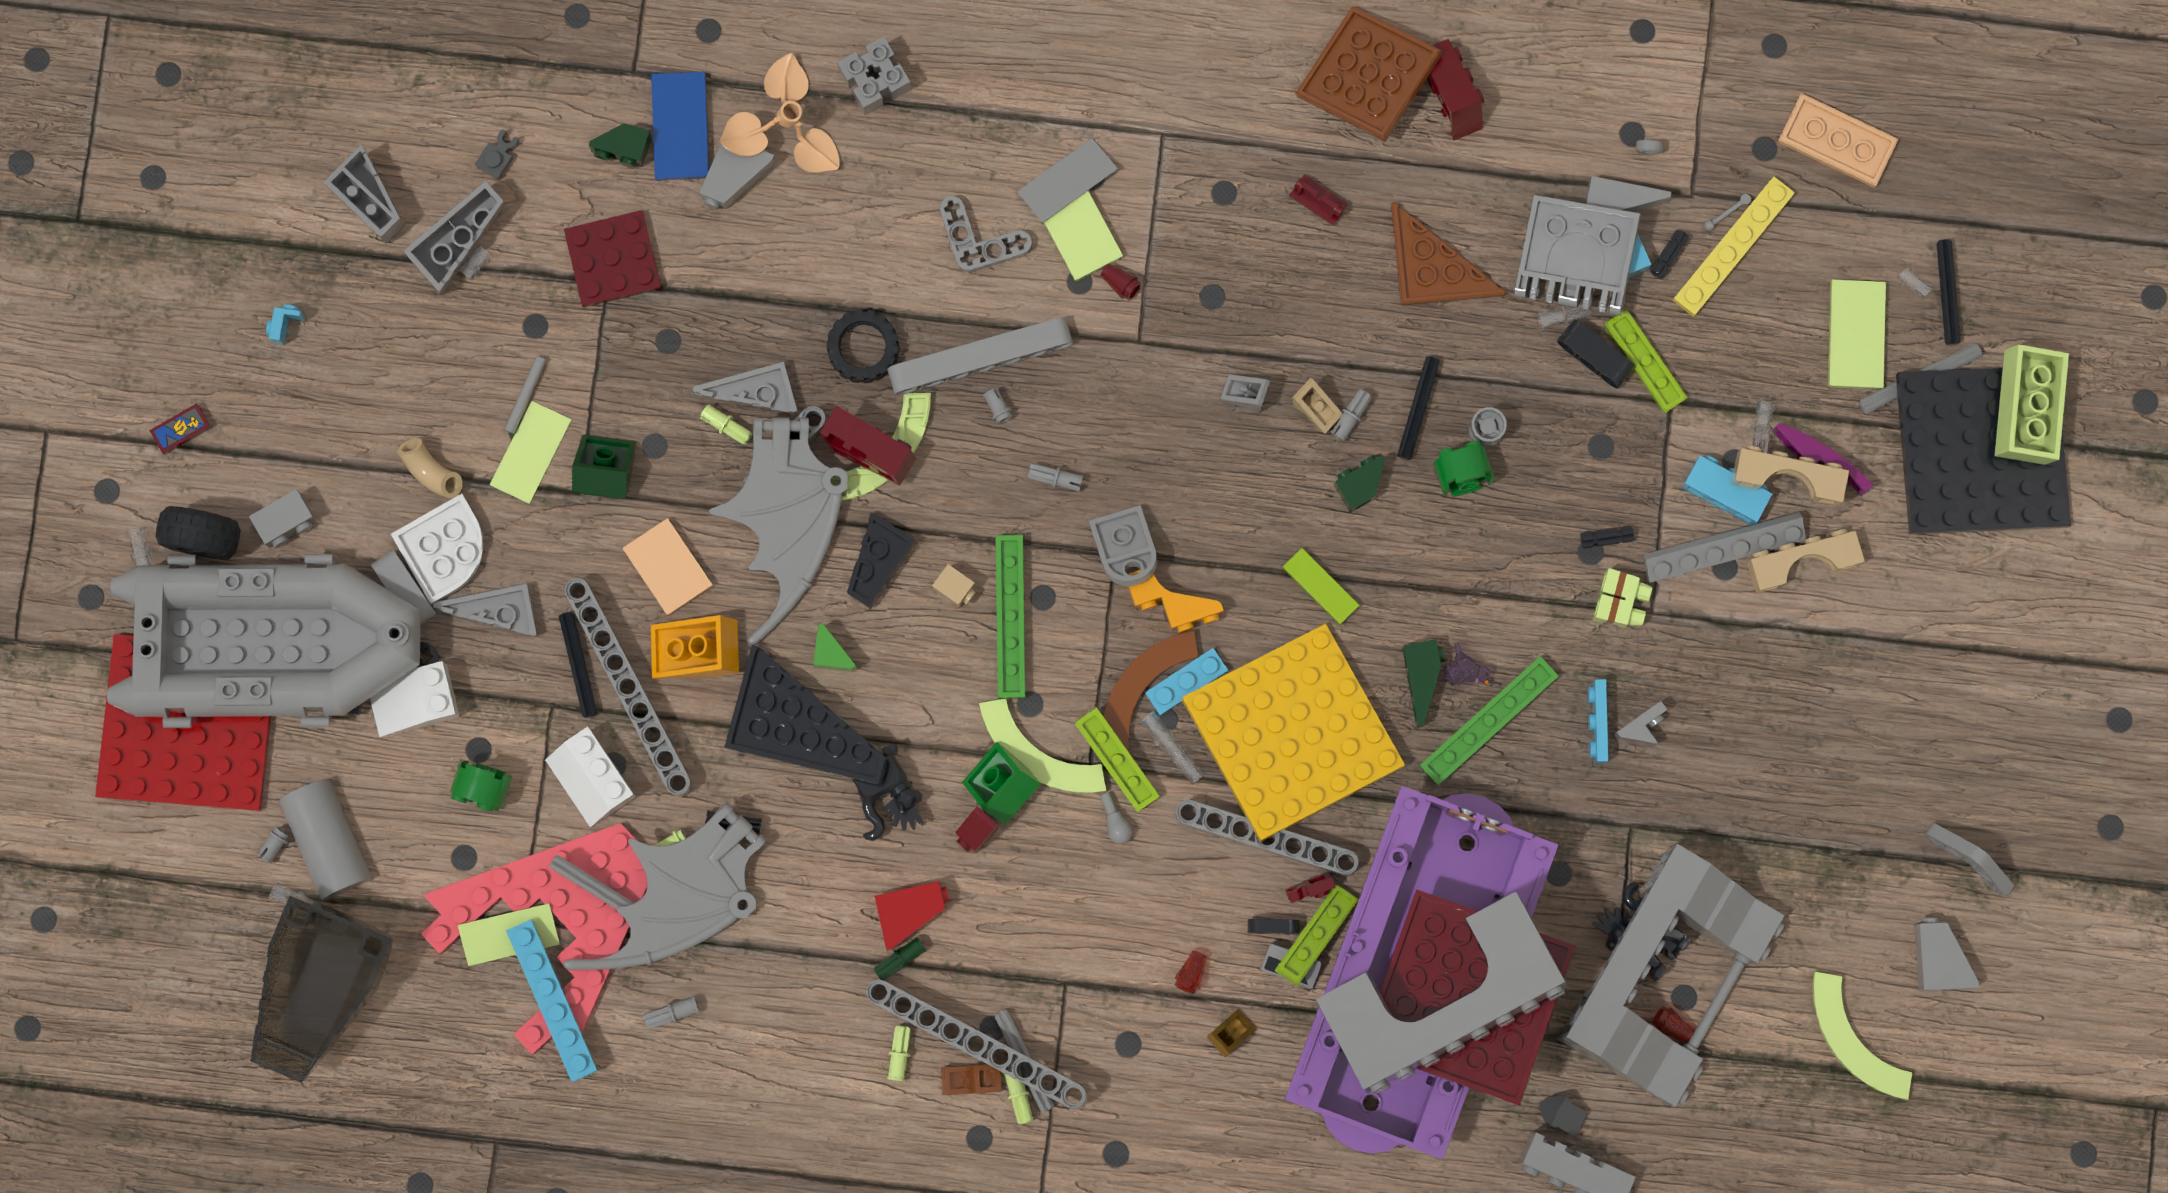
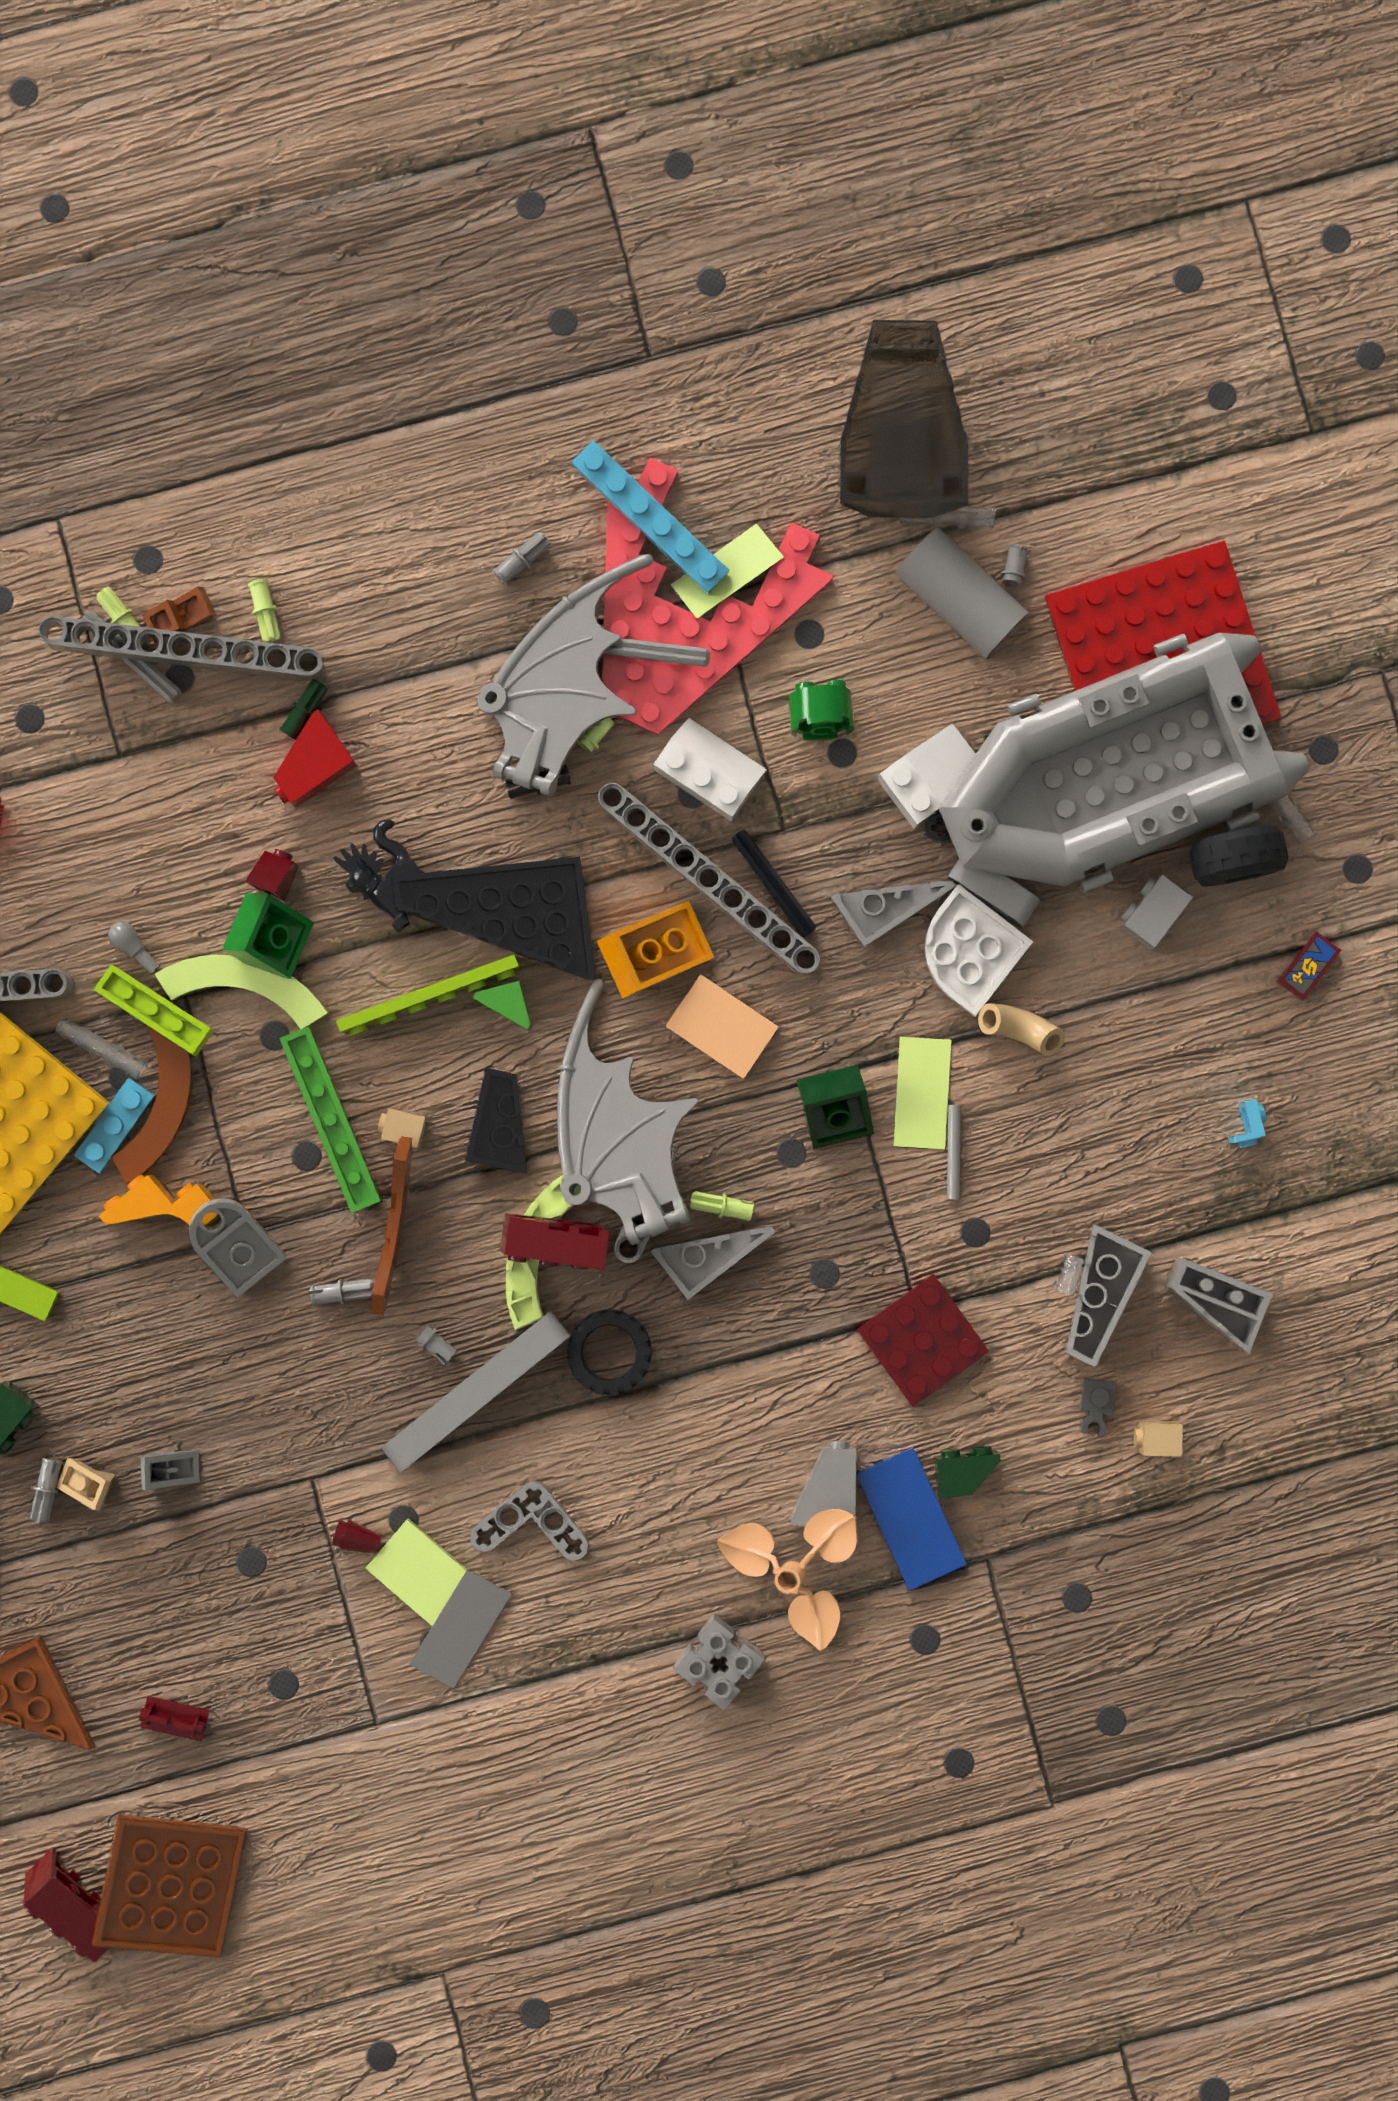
camera: 160 degrees right, 5 degrees up
(460, 109) = (1159, 1438): none -> tan brick
(879, 683) = (441, 991): none -> lime plate
(993, 510) = (394, 1226): none -> dark orange tile

